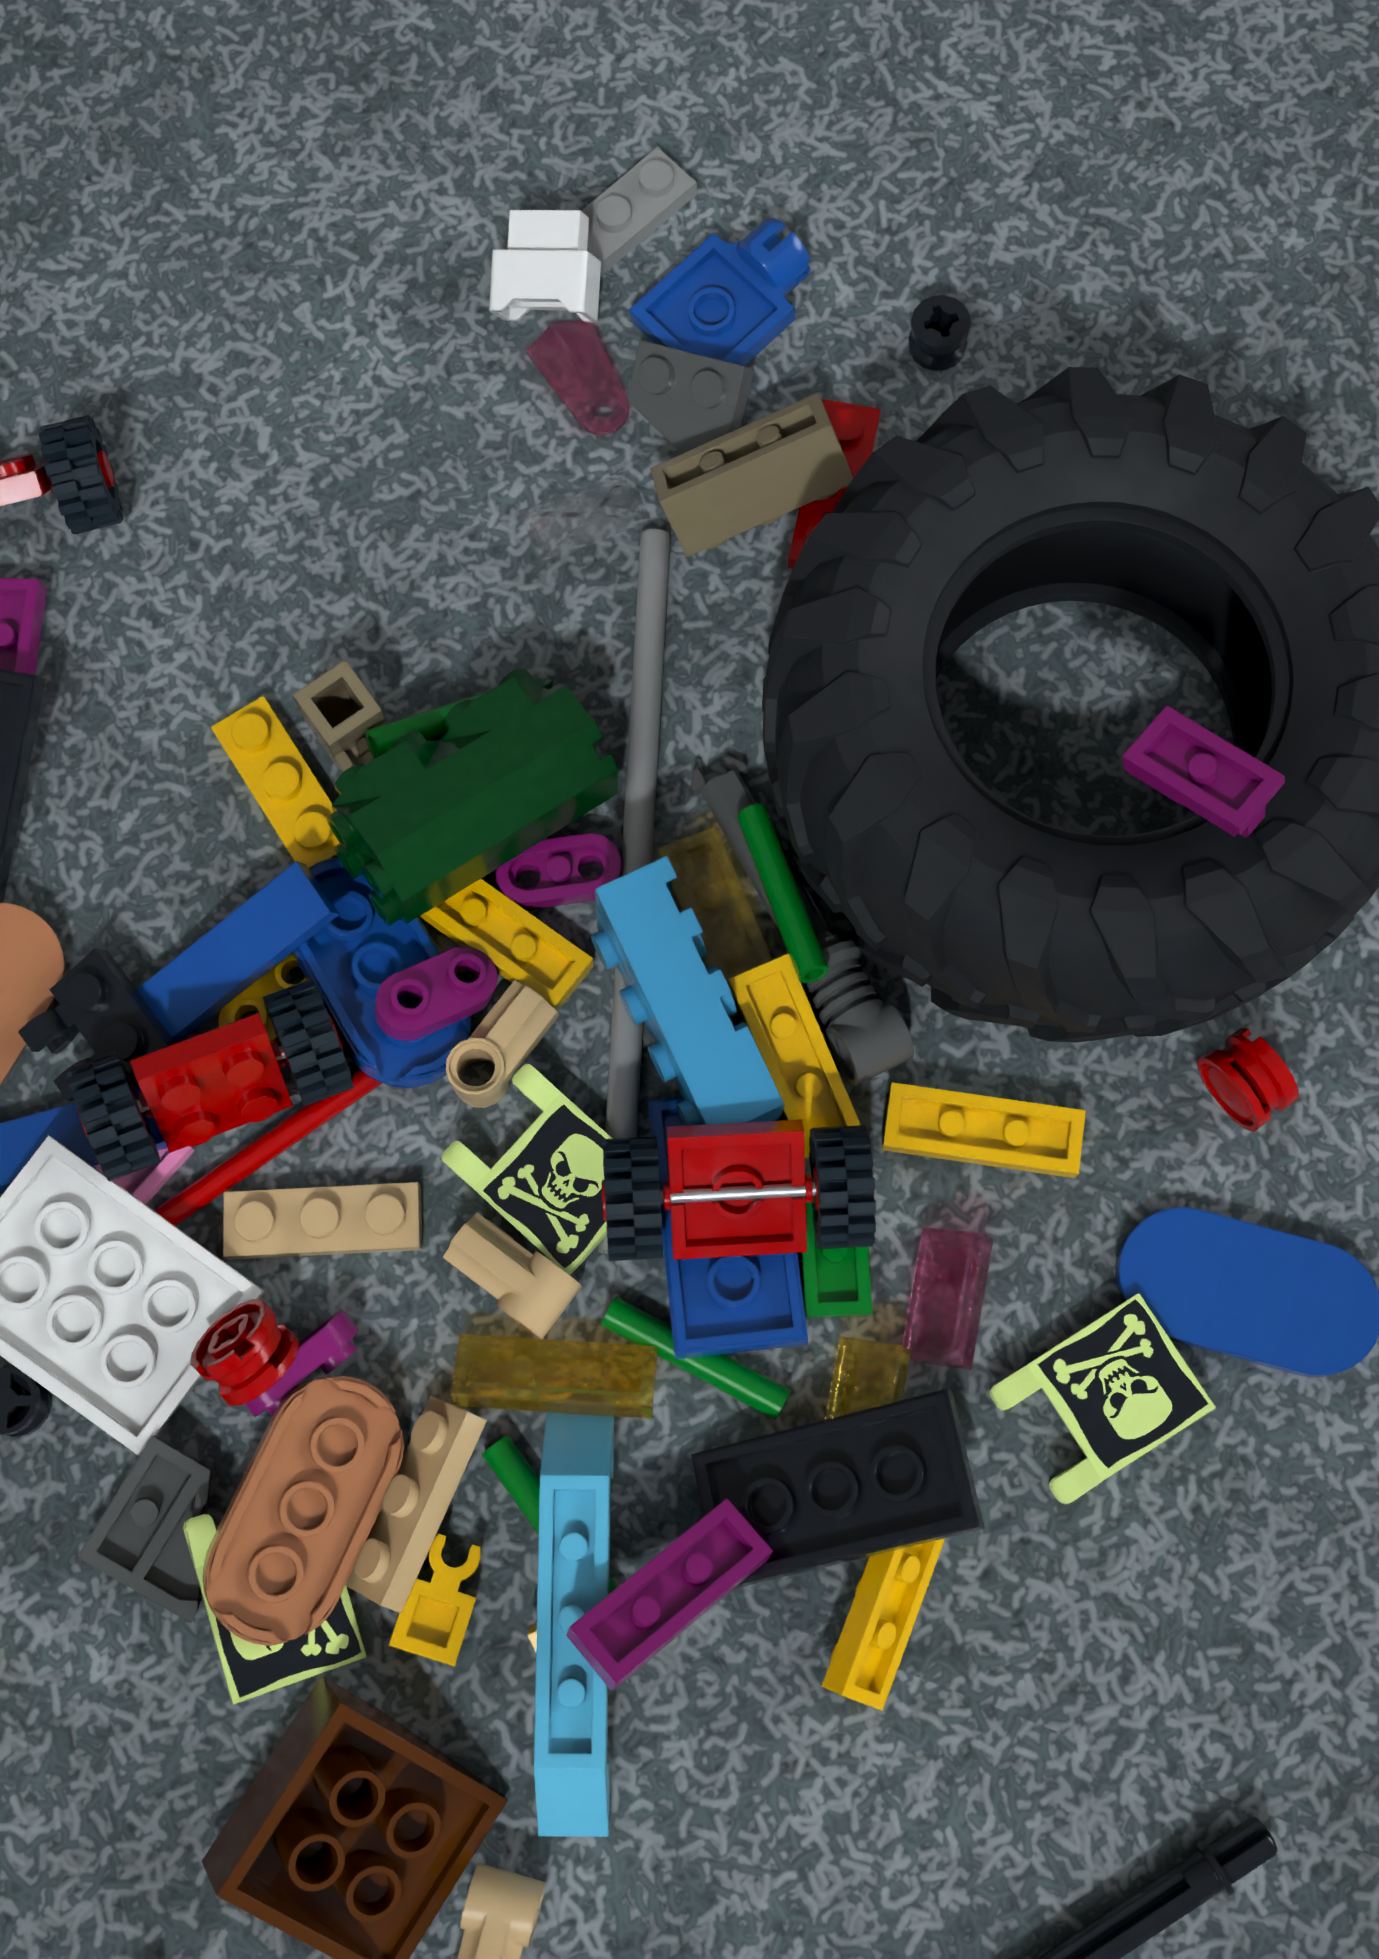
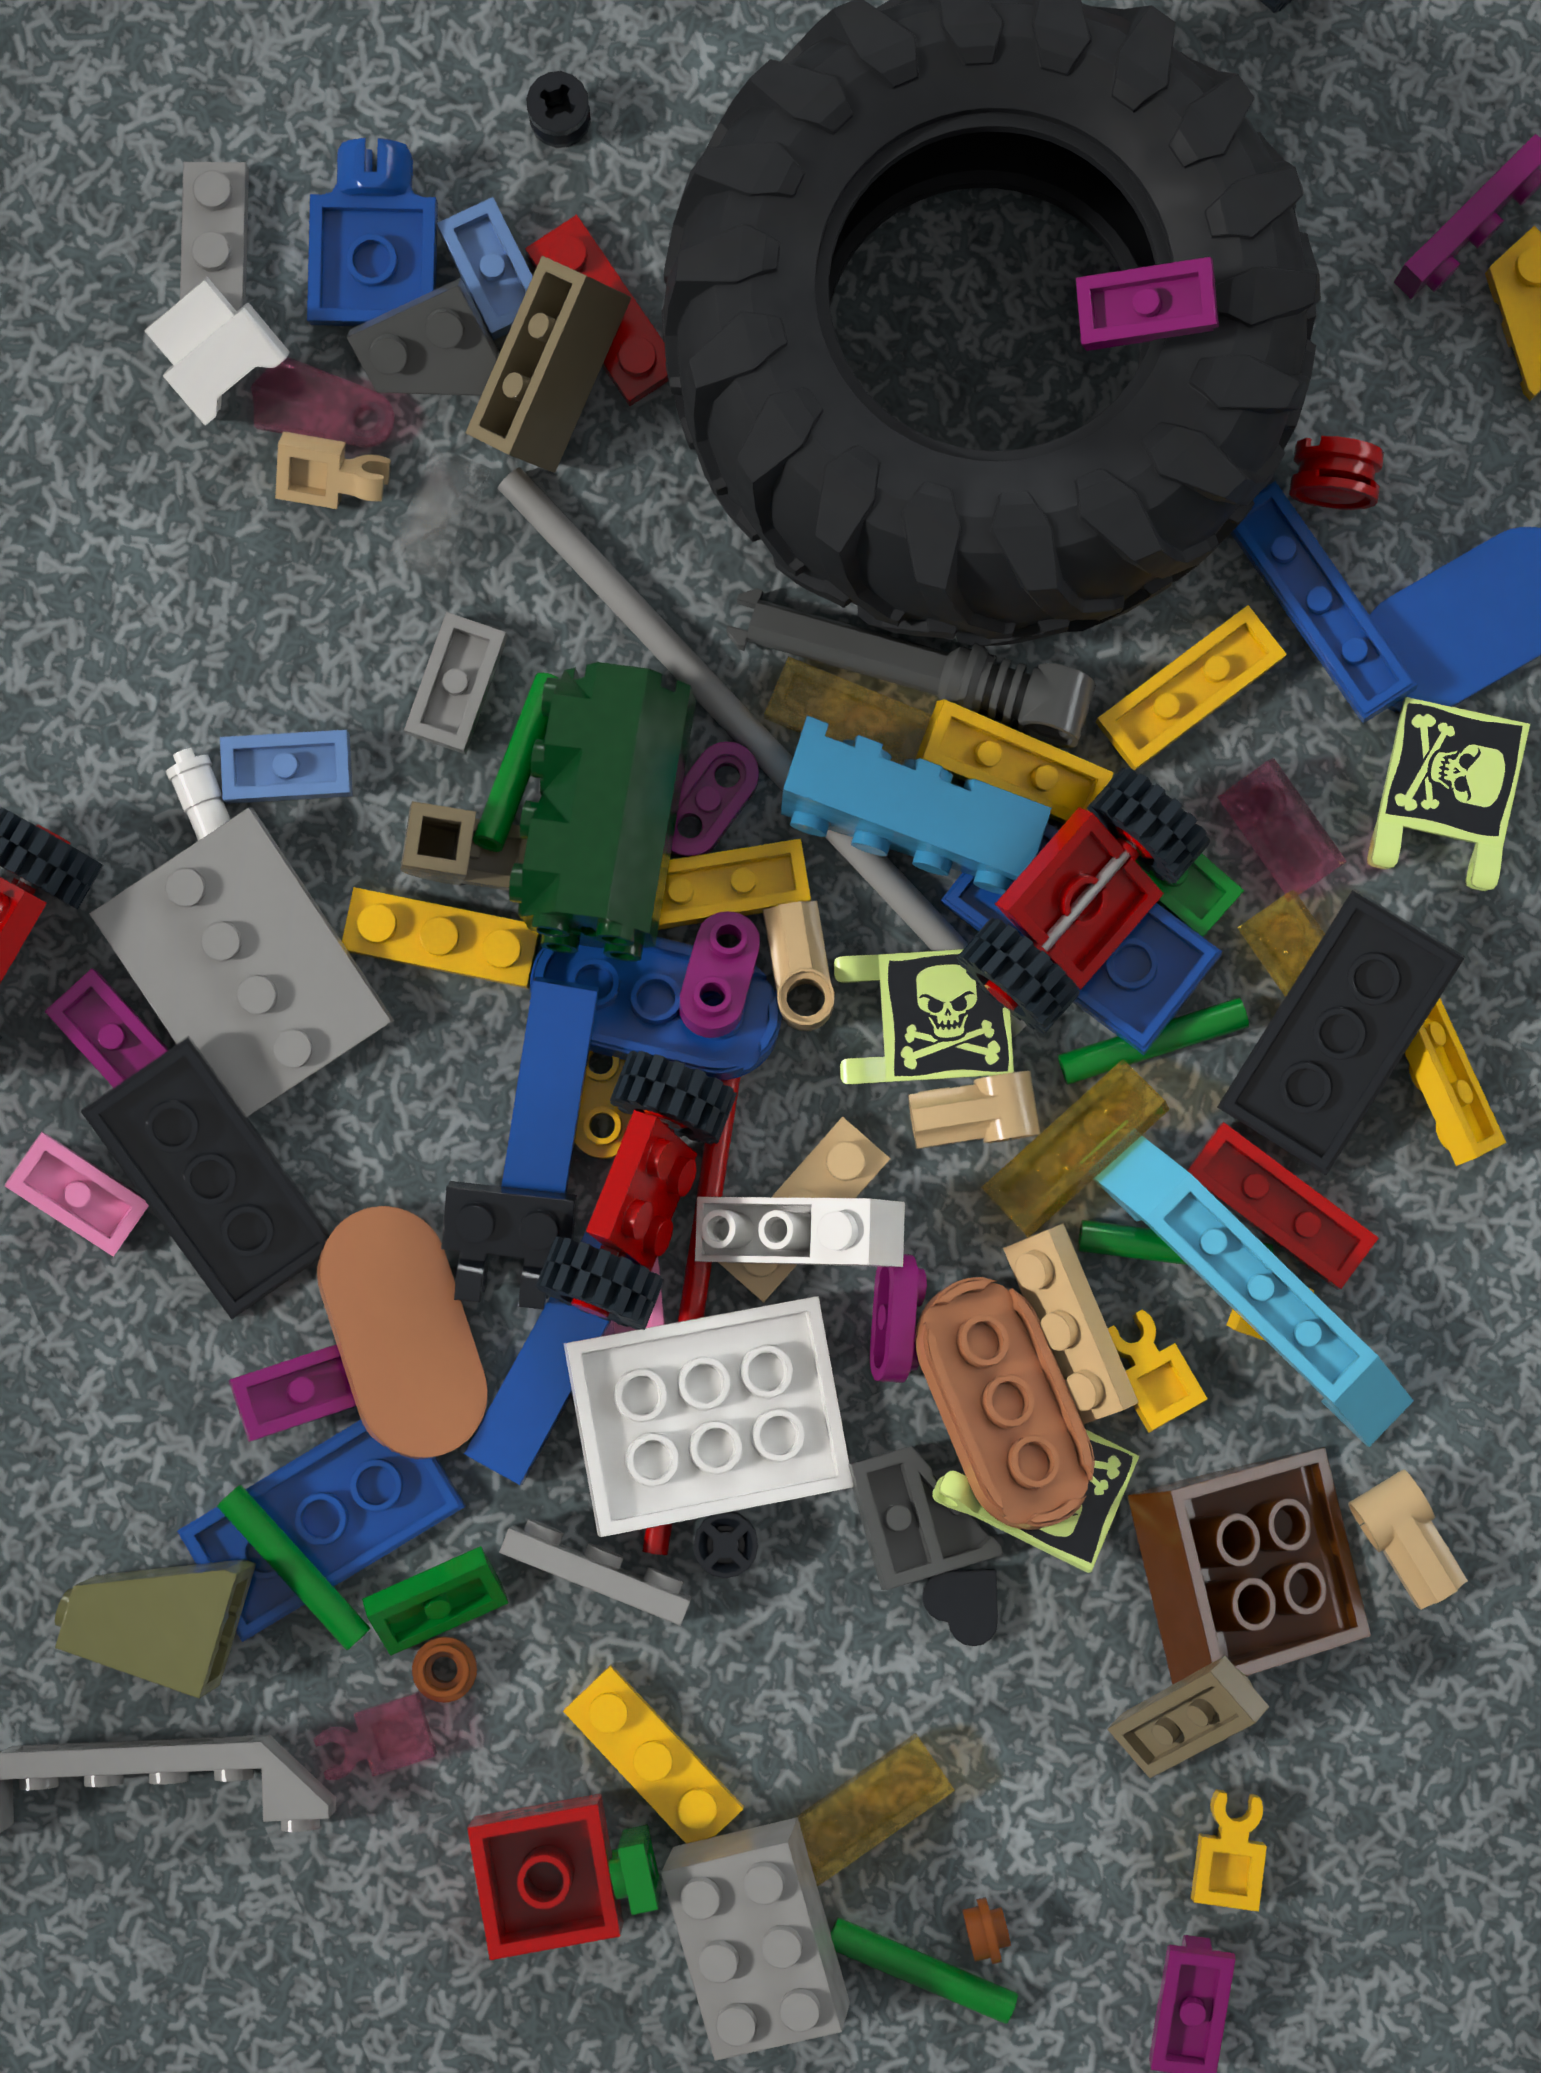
camera: 50 degrees left, 10 degrees up
(128, 1629) = (966, 1602): none -> black tile
(136, 673) = (242, 962): none -> light grey plate
(175, 1898) = (1188, 1717): none -> dark tan plate
(227, 553) = (198, 792): none -> white piece
(245, 1352) = (859, 1344): red wheel -> none
(295, 1230) = (800, 1231): none -> white slope
(306, 576) = (286, 766): none -> medium blue plate
(475, 630) = (456, 683): none -> light grey plate
(531, 413) = (318, 474): none -> tan plate
(651, 1519) = (1281, 1206): none -> red plate
(668, 1594) = (1308, 1206): magenta plate -> none
(783, 893) = (894, 659): green piece -> none
(790, 373) = (487, 263): none -> medium blue plate
(1142, 1164) = (1322, 605): none -> blue tile

